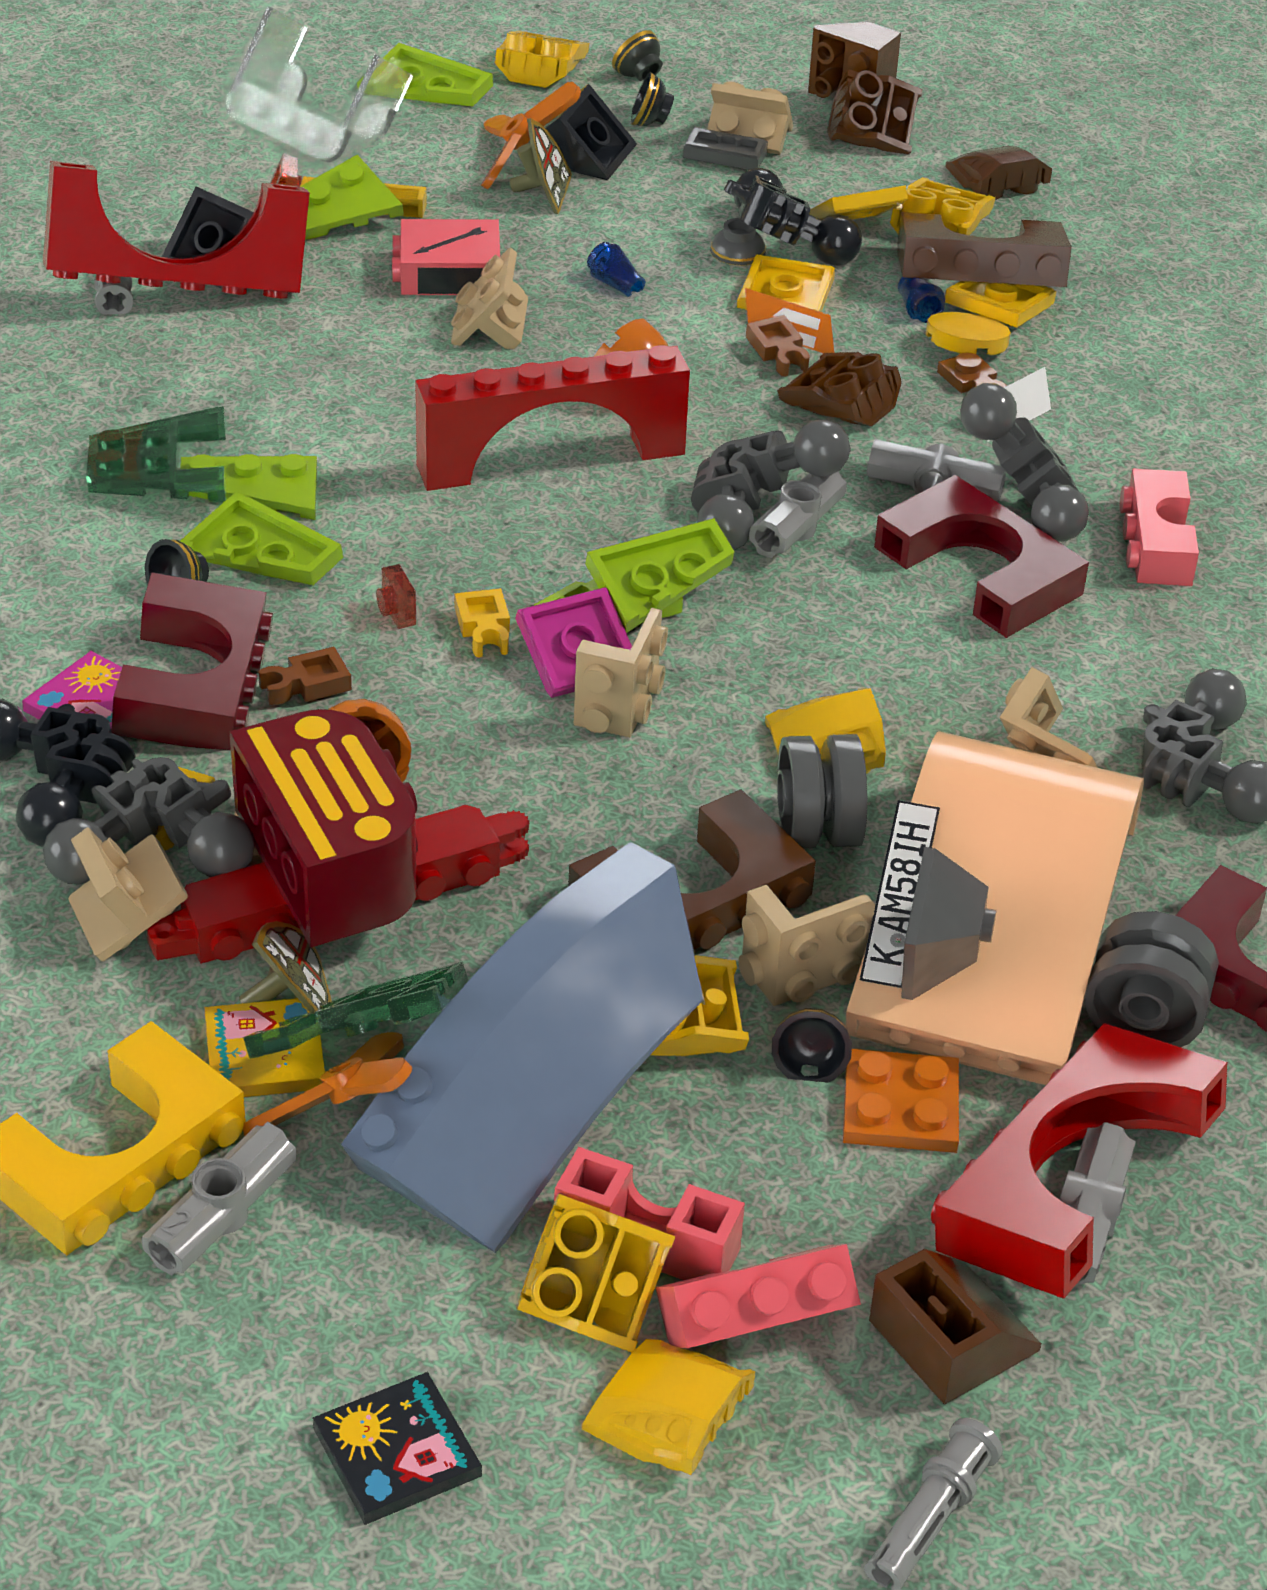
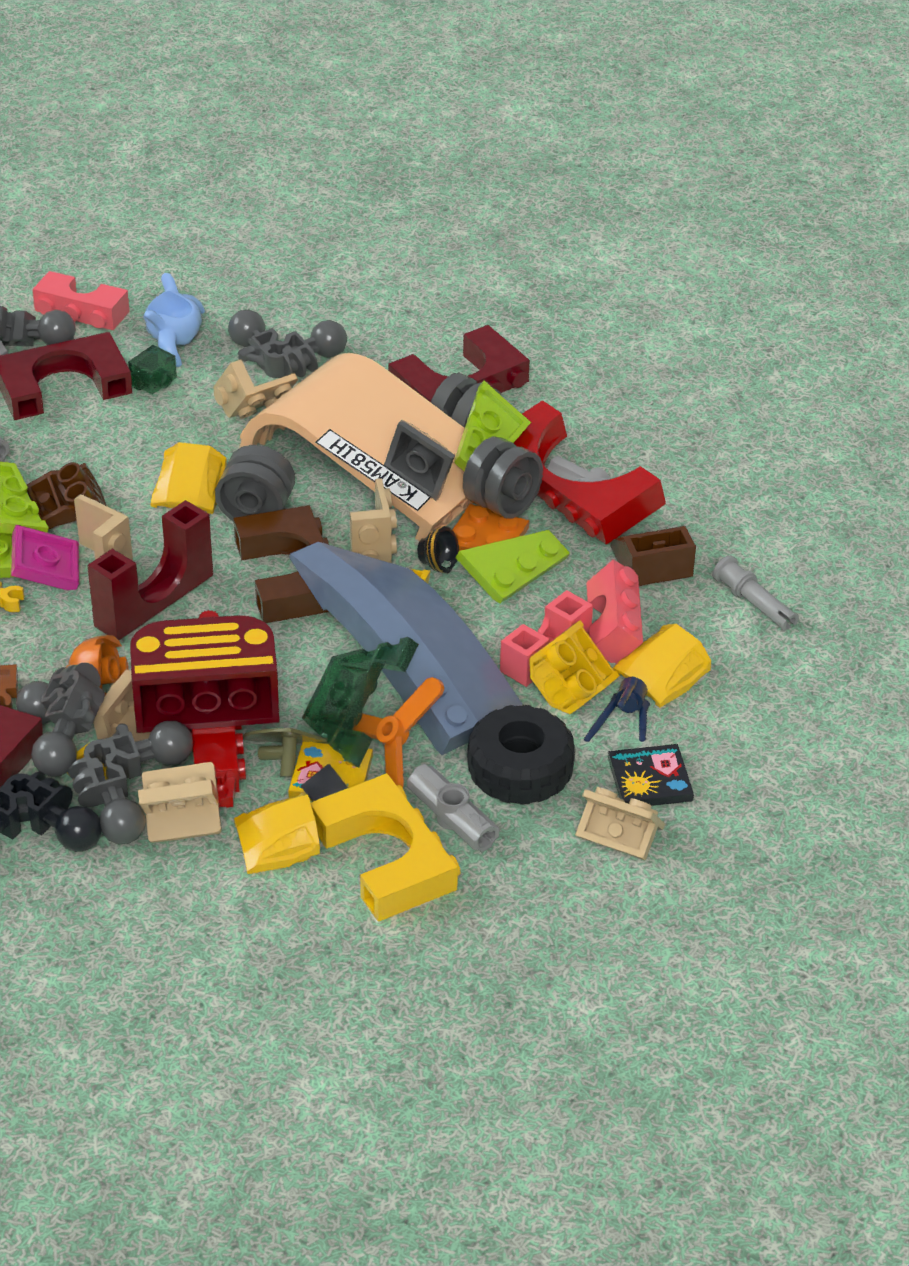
camera: 70 degrees left, 0 degrees up
(103, 1013) = (278, 834): none -> yellow slope
(164, 735) = (69, 702): none -> dark grey piece
(209, 1035) = (323, 783): none -> black tile
(254, 1417) = (618, 824): none -> tan bracket
(365, 1291) = (521, 754): none -> black tyre
(506, 740) = (186, 562): none -> dark red arch
(571, 1371) = (628, 699): none -> dark blue plant
(726, 631) = (58, 489): none -> reddish brown slope
(834, 1144) = (513, 563): none -> lime wing
(982, 1054) = (502, 477): none -> dark grey wheel
(1050, 633) = (152, 369): none -> clear green brick
(1074, 1008) = (488, 418): none -> lime wing
(1172, 617) = (173, 317): none -> light blue piece

